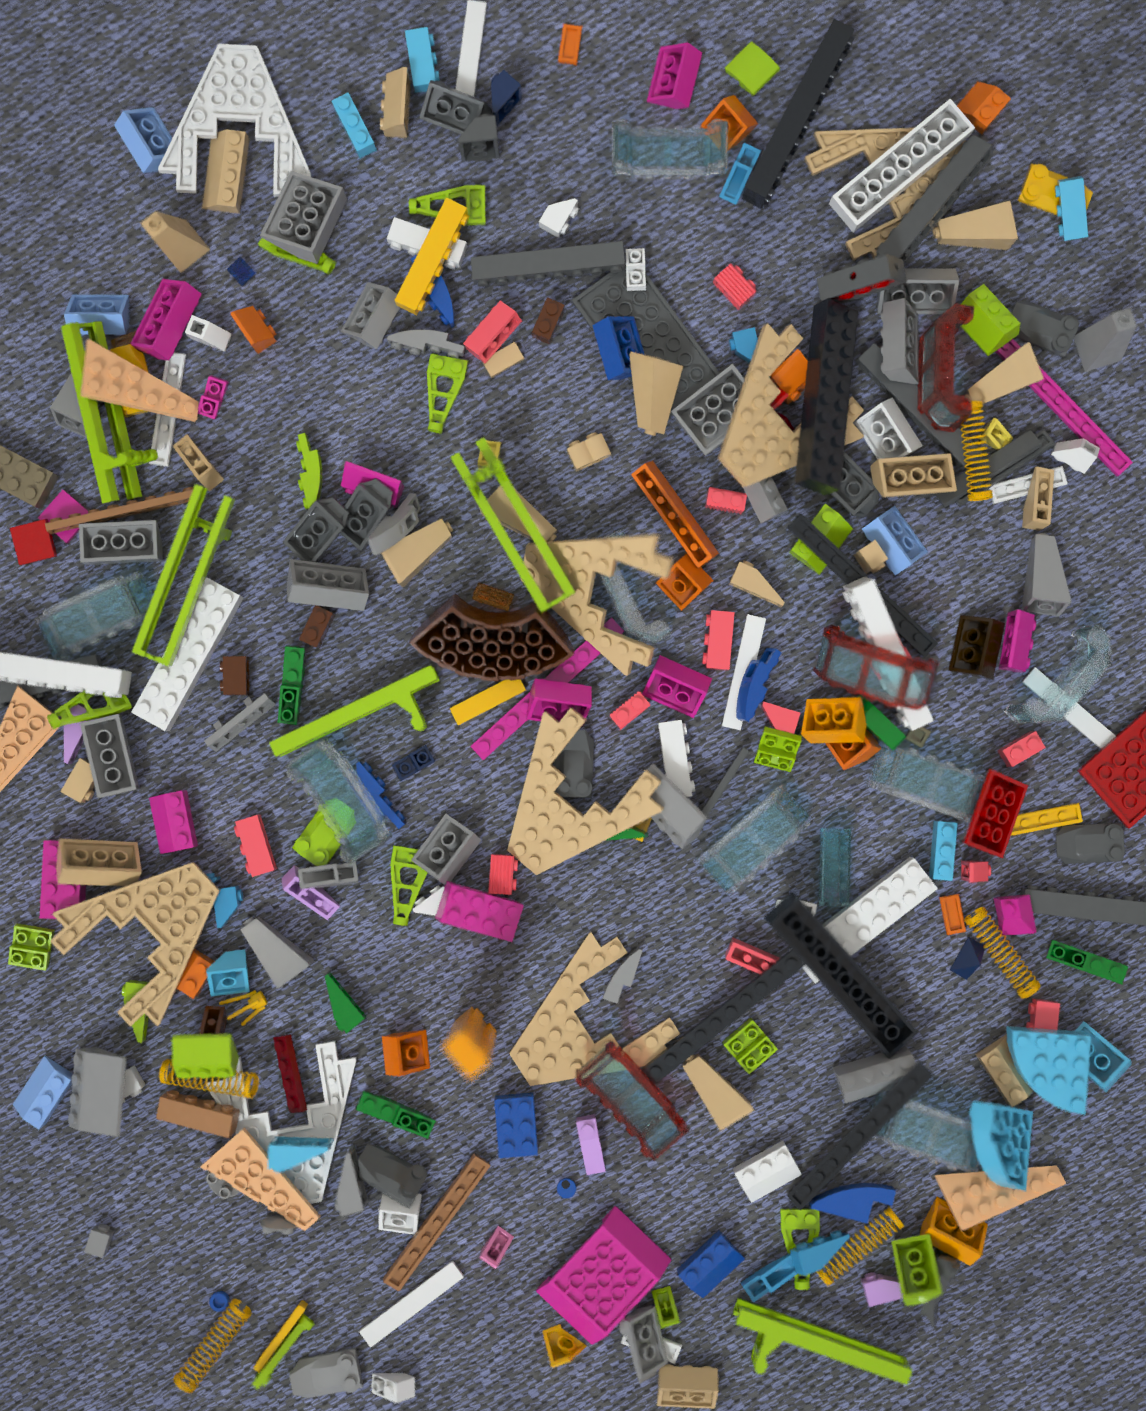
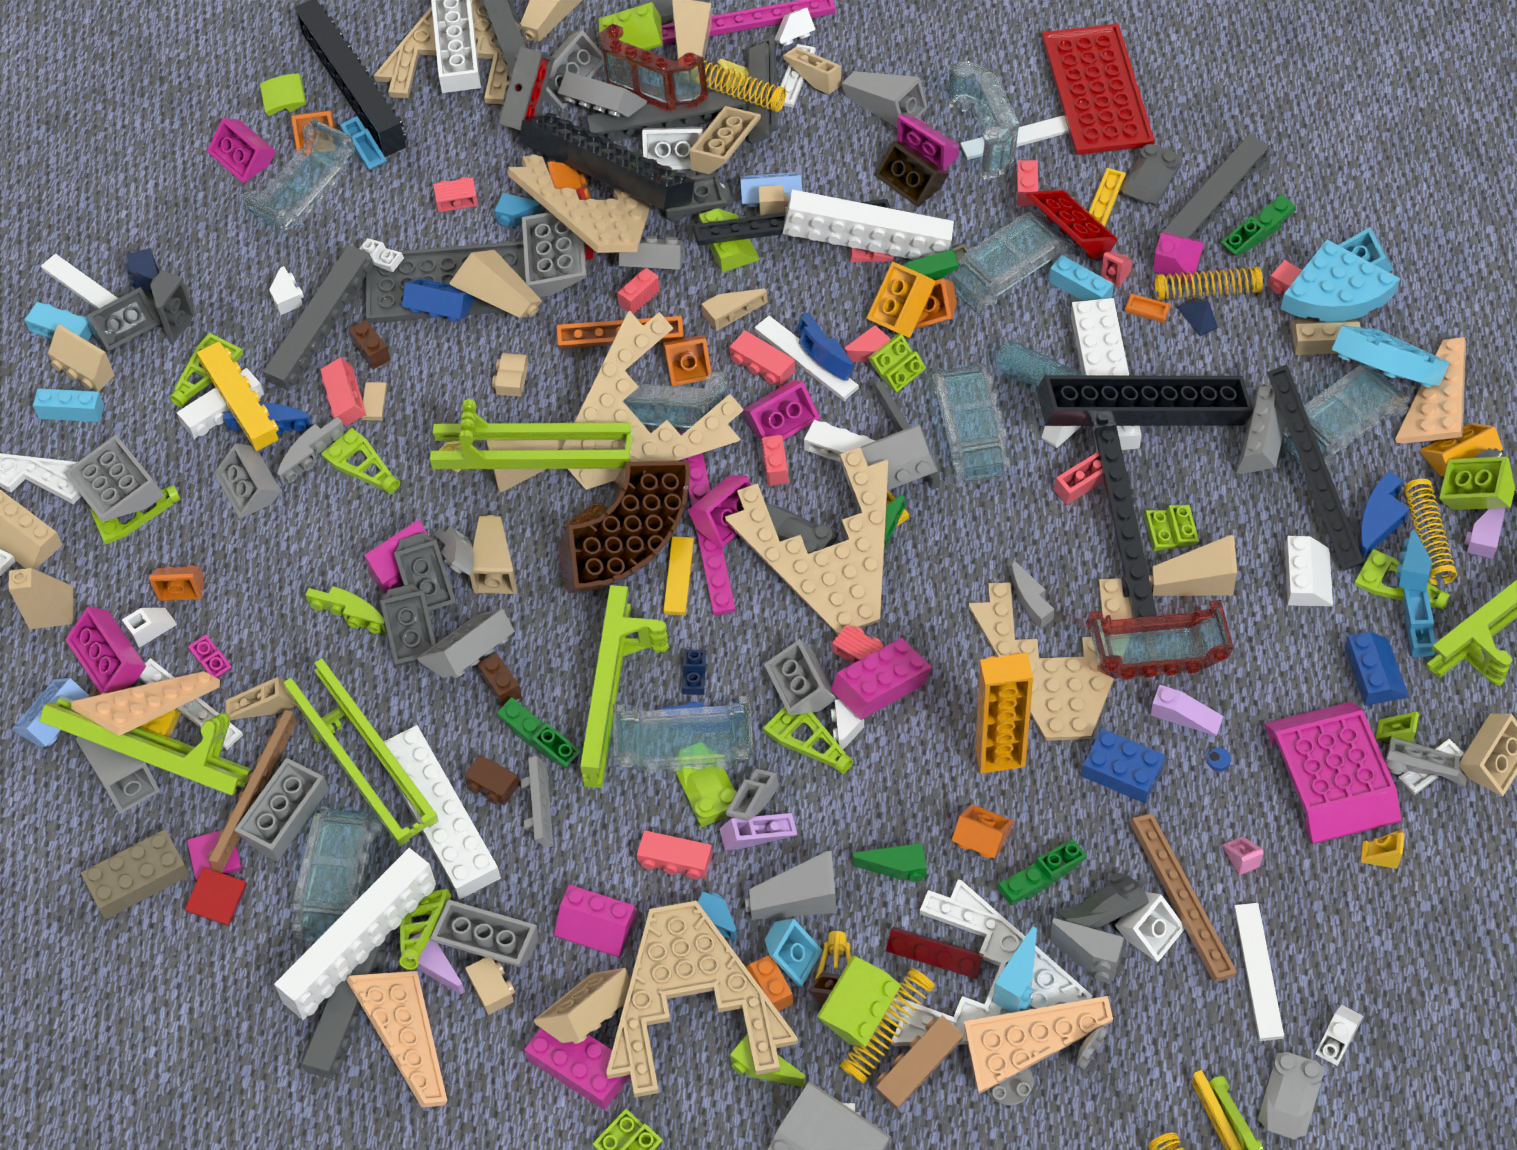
camera: 55 degrees left, 30 degrees down
(241, 271) = (115, 569): clear blue slope -> none
(570, 44) = (146, 212): orange tile -> none
(874, 671) = (871, 237): windscreen -> none

